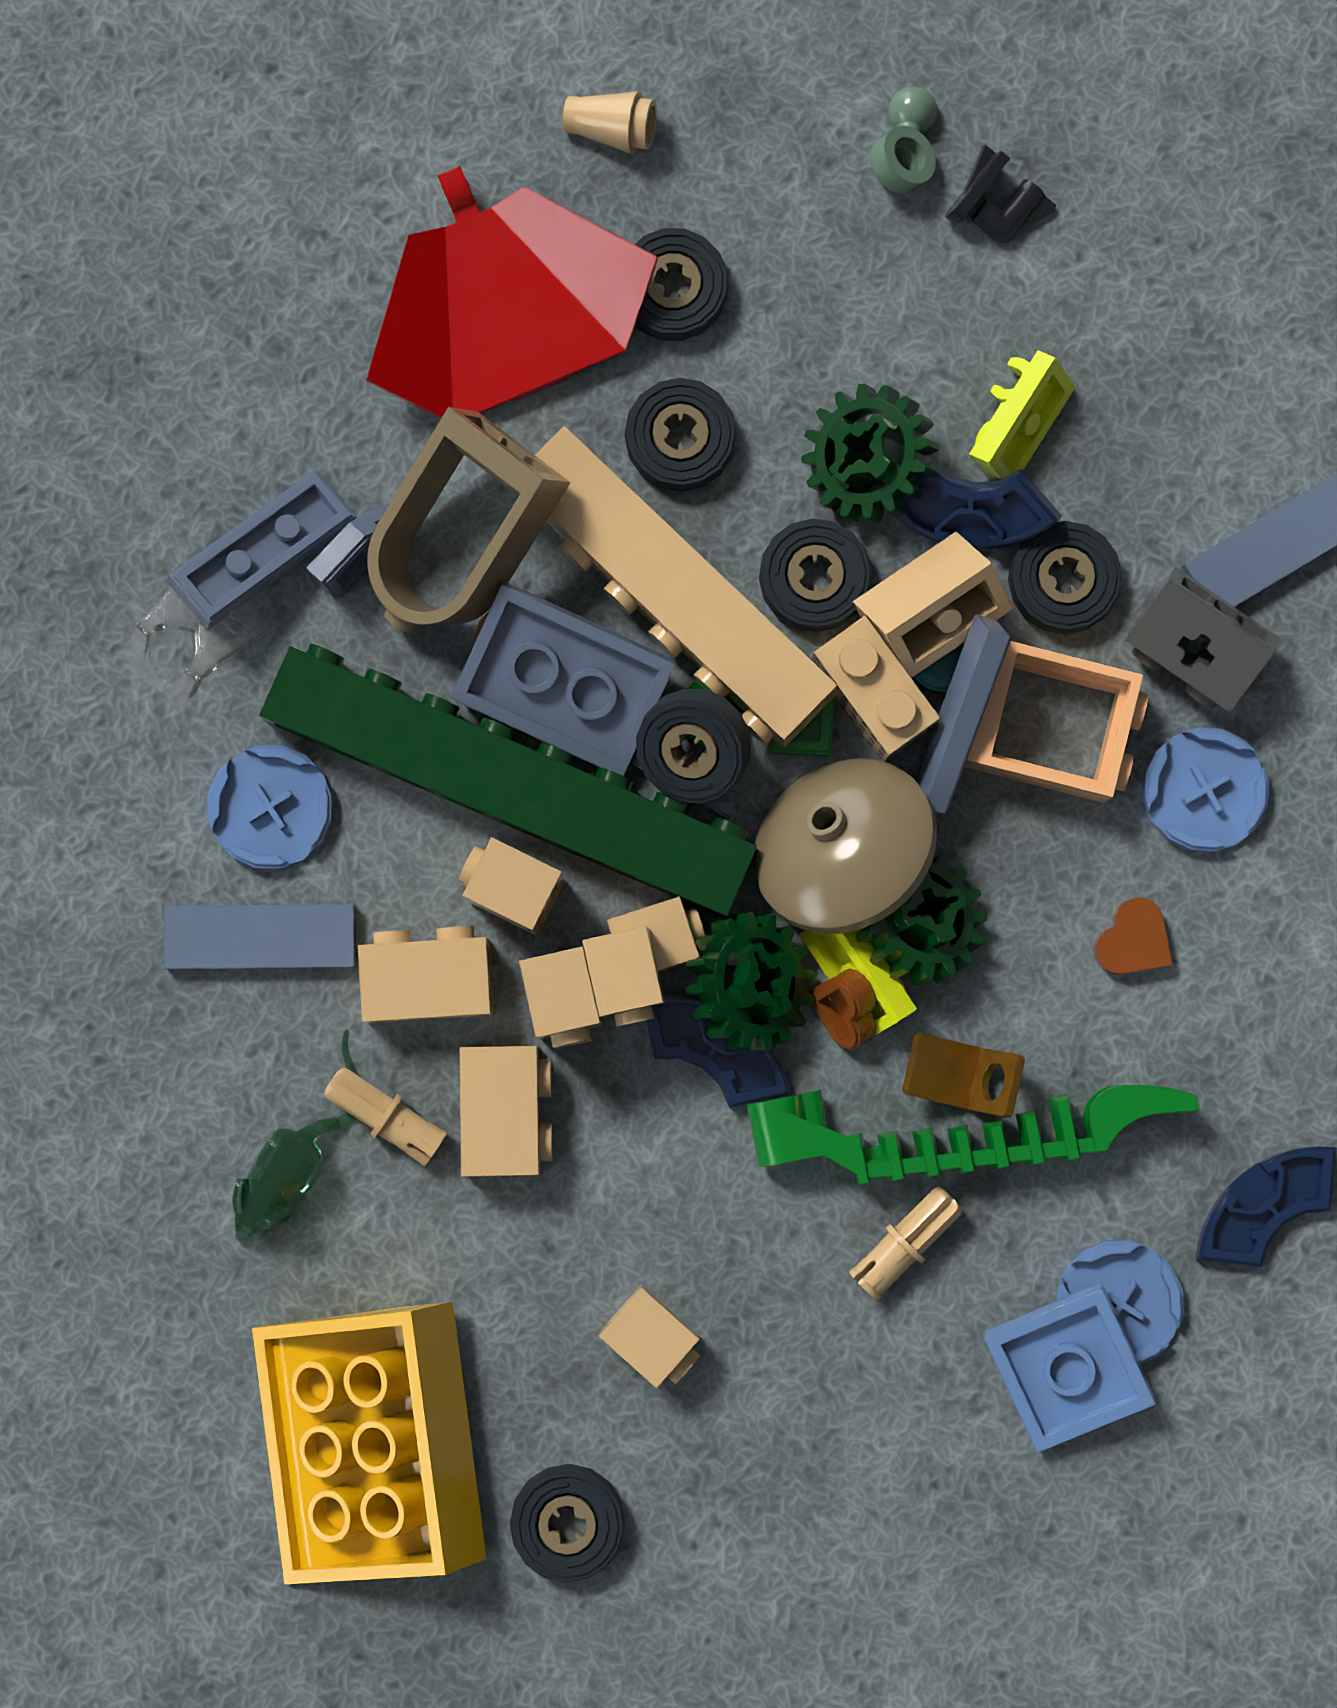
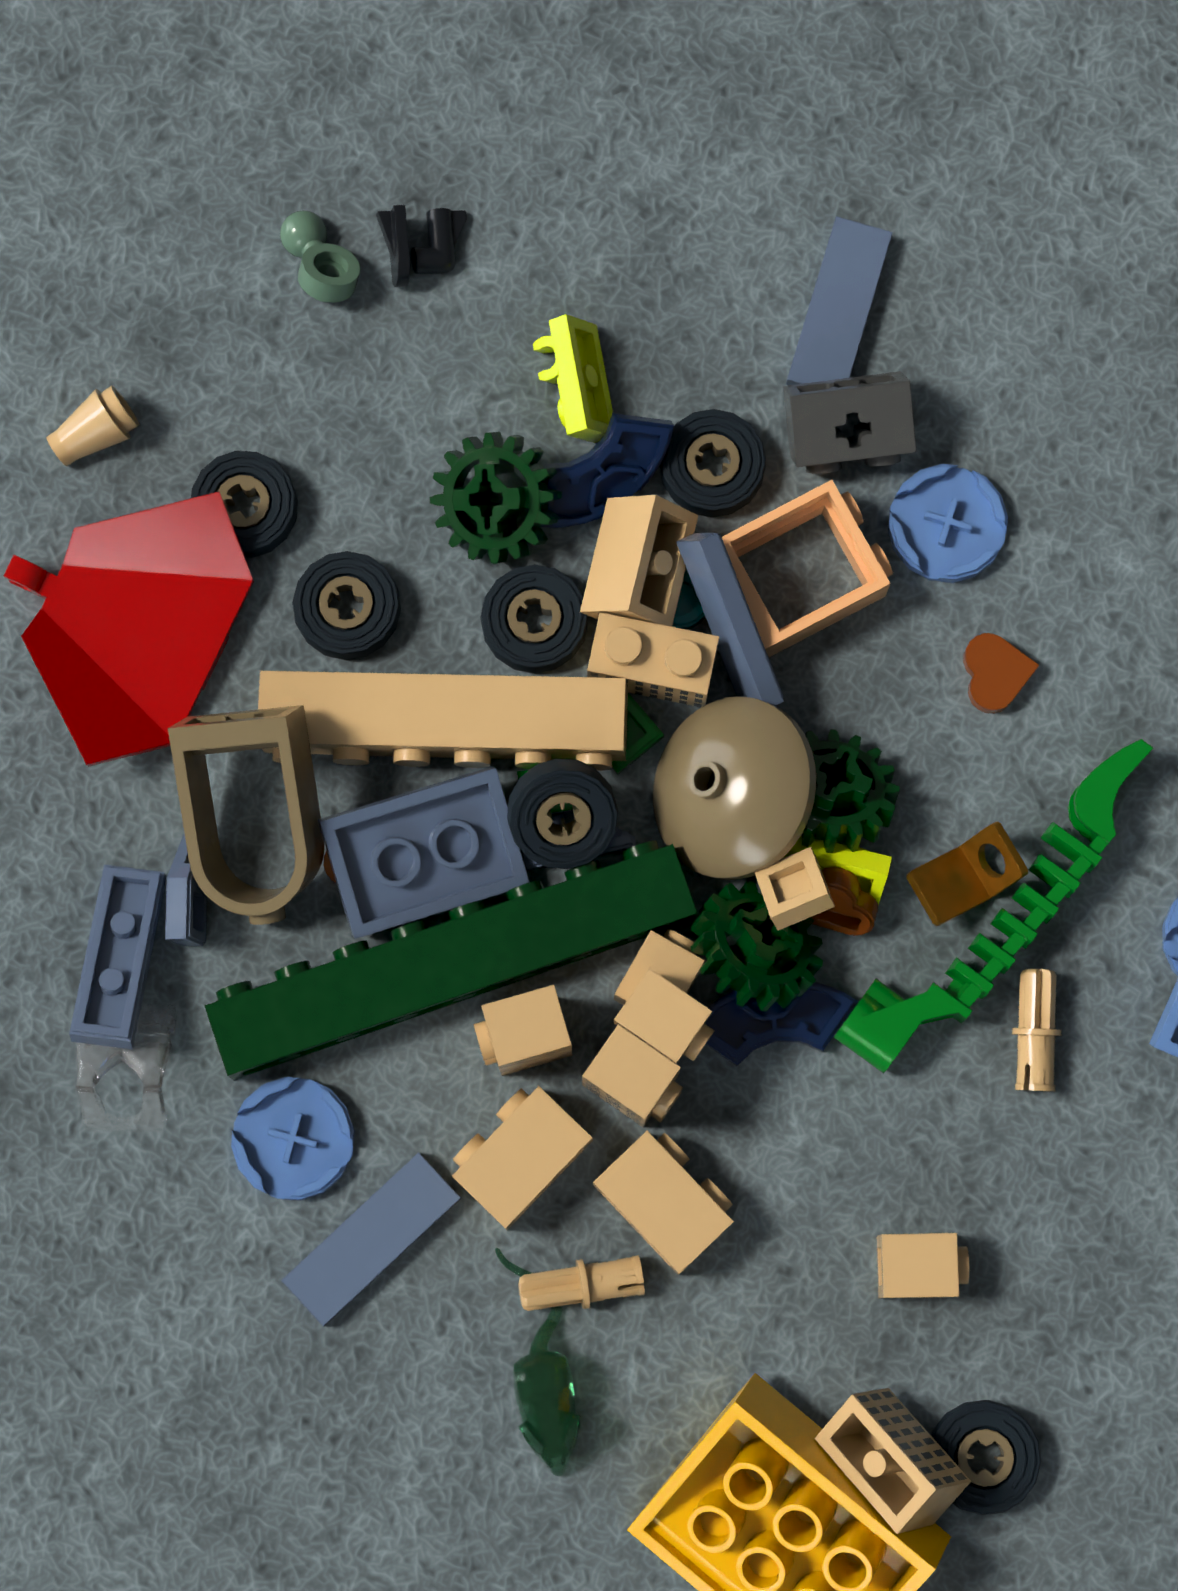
camera: 40 degrees left, 5 degrees down
(492, 1463) = (892, 1460): none -> tan brick
(816, 966) = (794, 889): none -> tan plate

